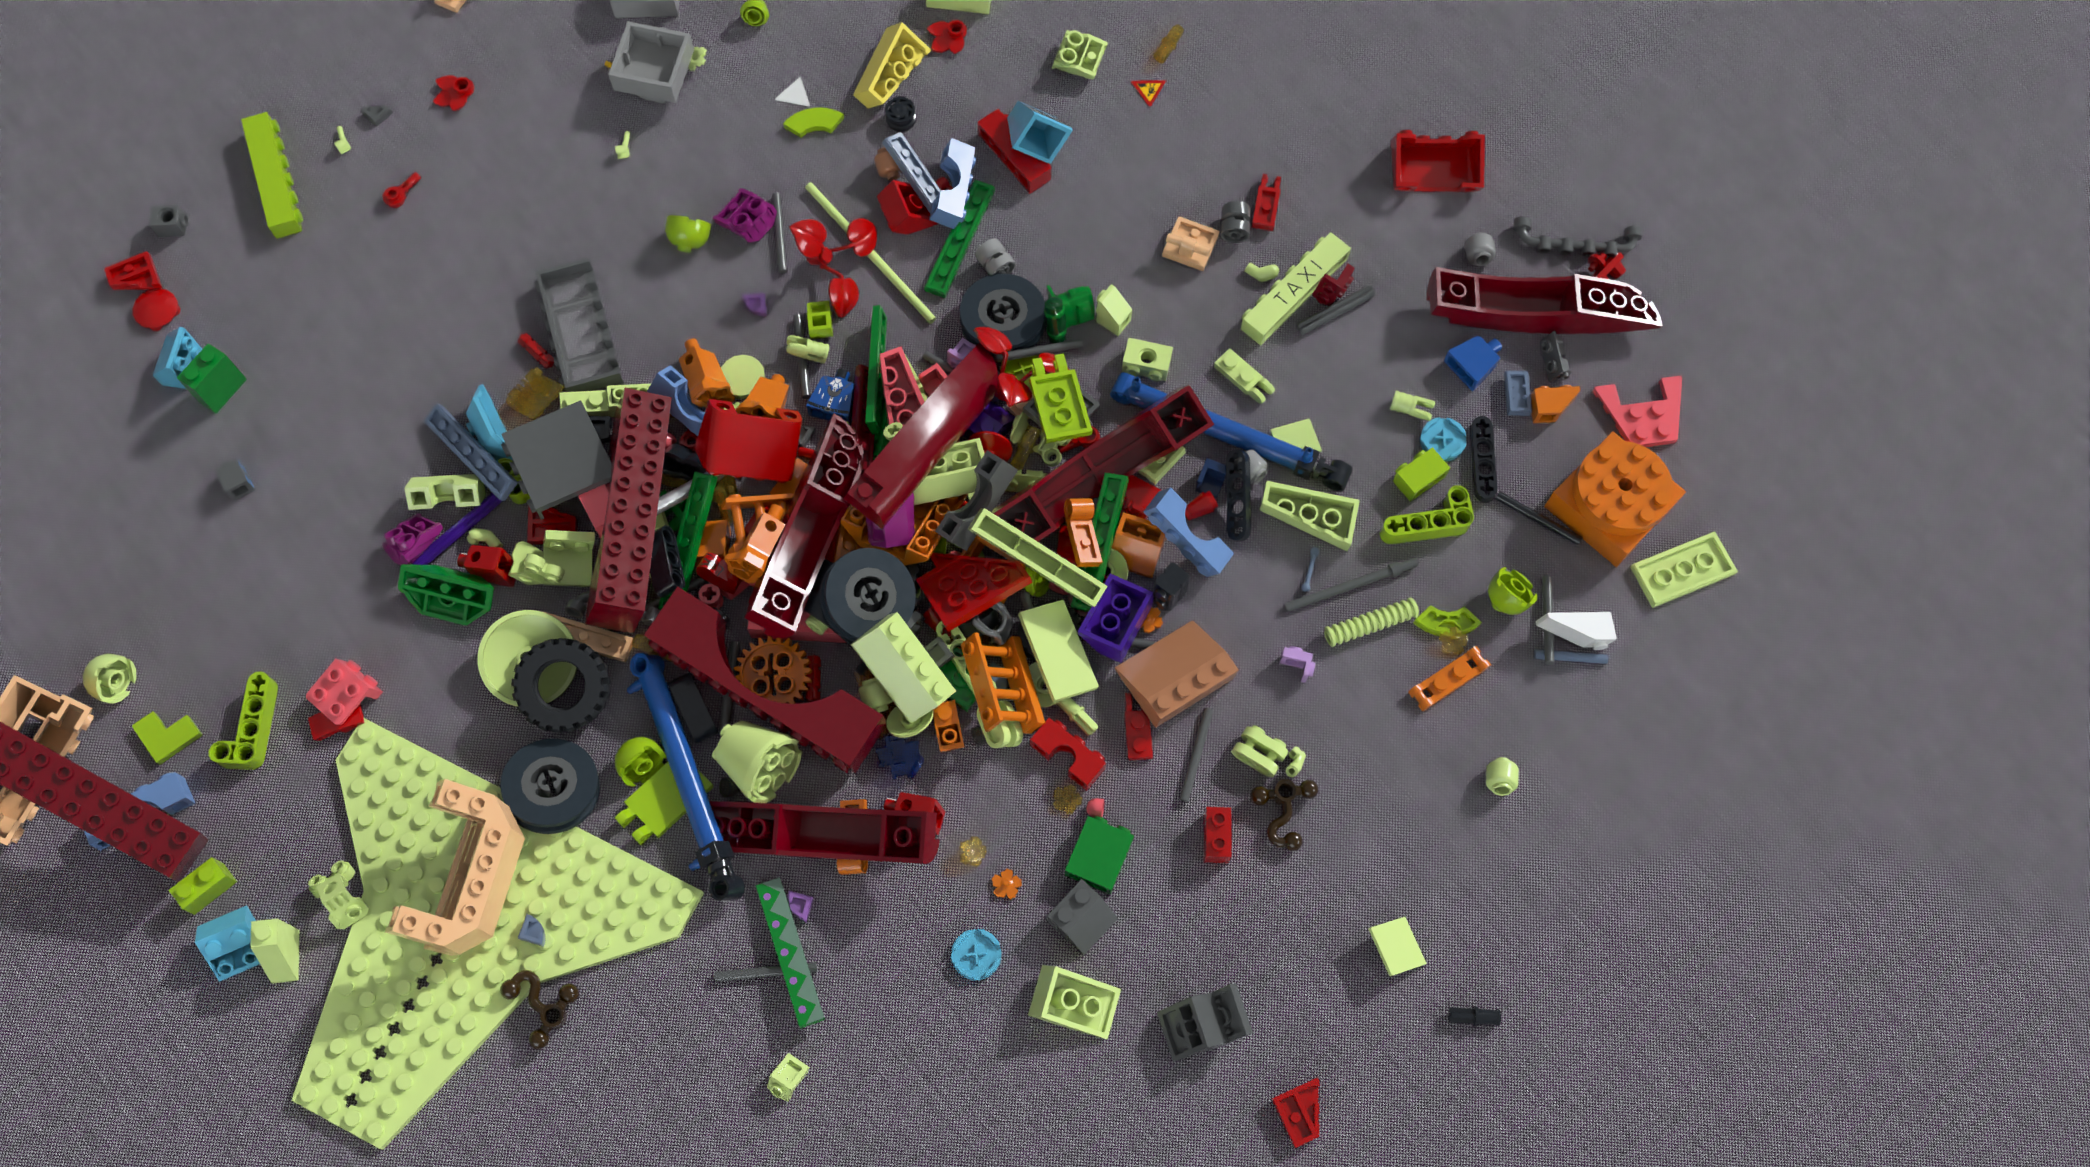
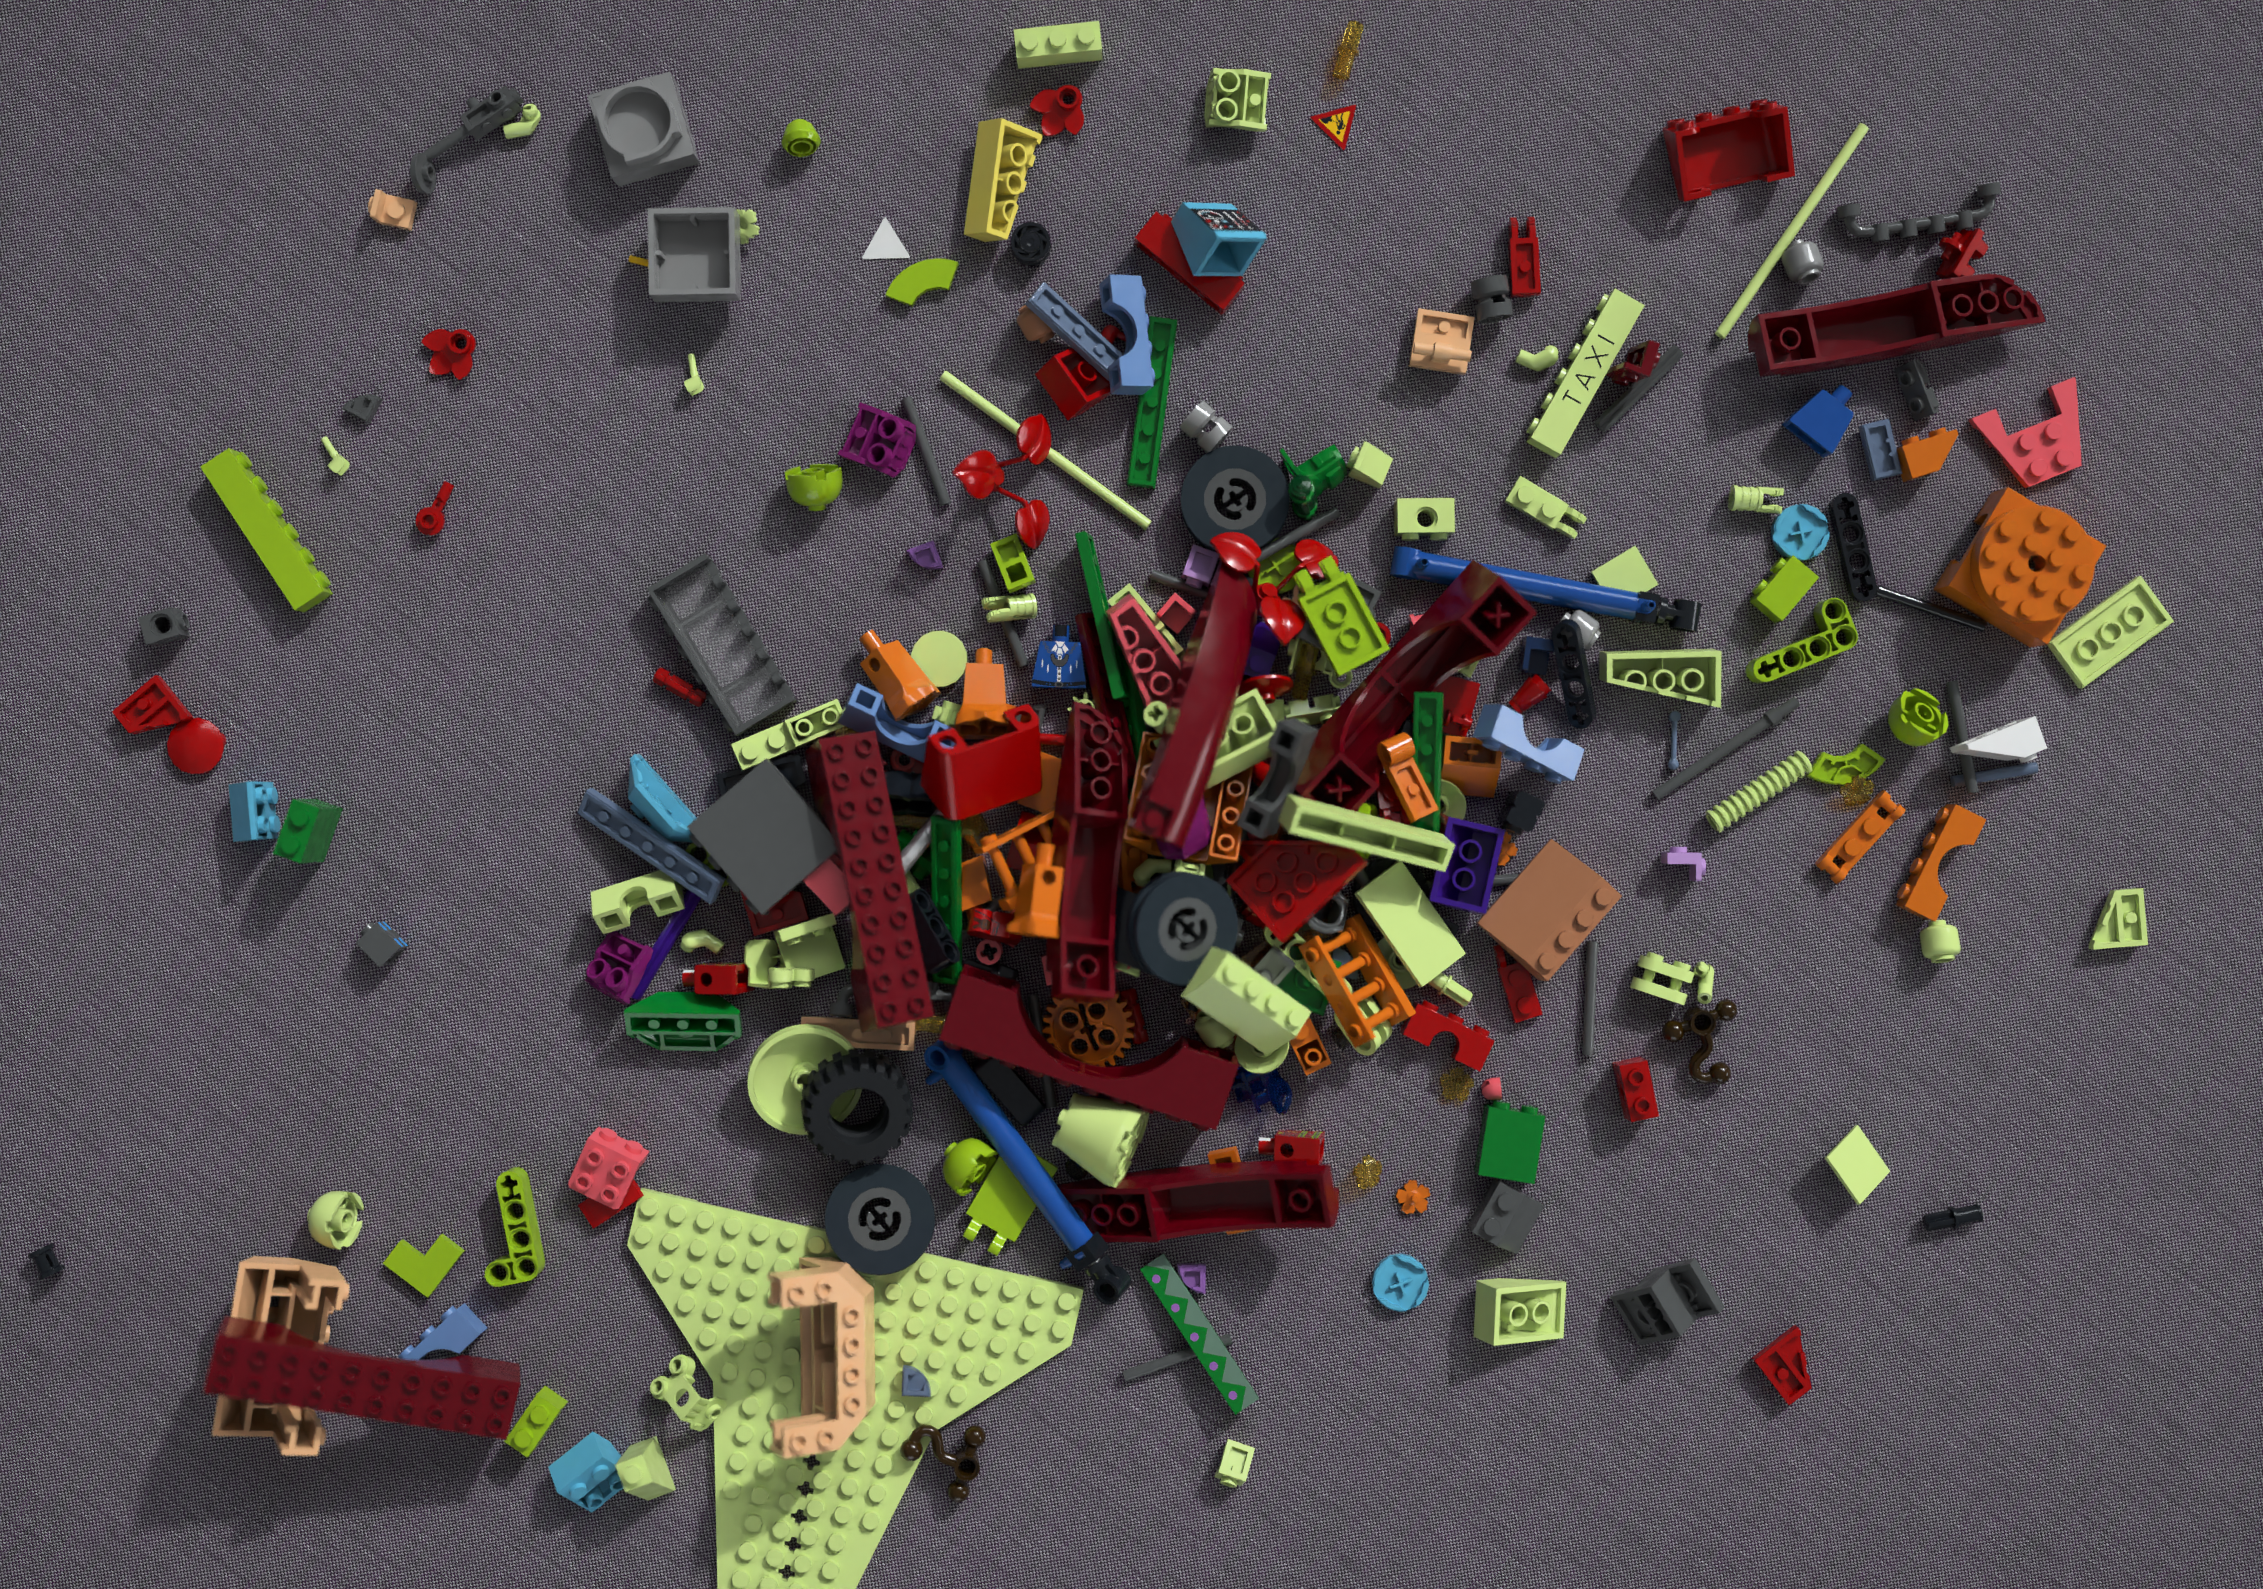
camera: 10 degrees left, 20 degrees up
(536, 394) = (700, 750): clear yellow hinge -> none
(1479, 227) = (1791, 231): none -> yellowish green piece
(1496, 734) = (1923, 892): none -> orange arch
(1661, 797) = (2121, 921): none -> yellowish green wing

